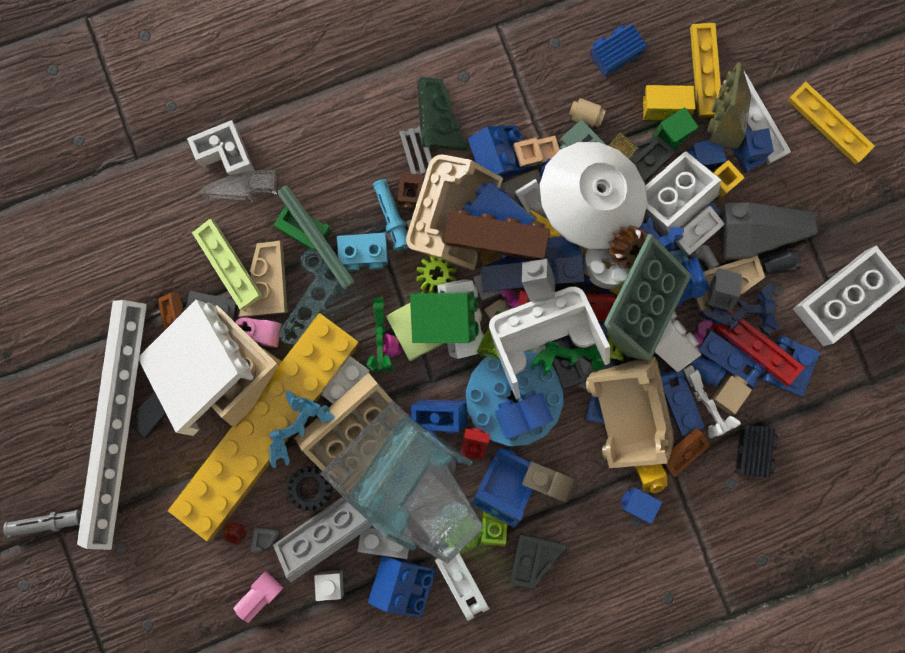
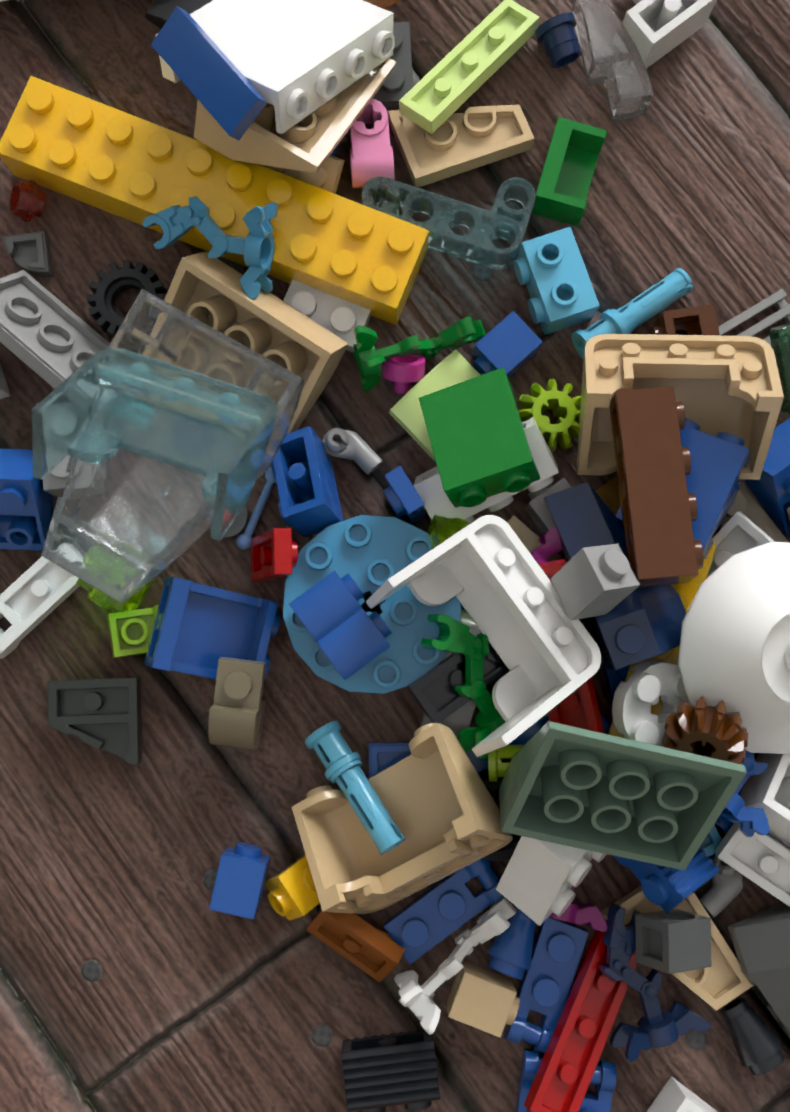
camera: 75 degrees right, 0 degrees up
(212, 408) = (208, 73): none -> blue tile
(225, 210) = (559, 39): none -> dark blue piece
(315, 237) = (557, 189): sand green axle -> none
(393, 289) = (507, 345): none -> blue brick
(423, 386) = (351, 446): none -> light grey arm
(461, 365) = (403, 496): none -> blue plate
(596, 435) = (344, 769): none -> medium azure pin

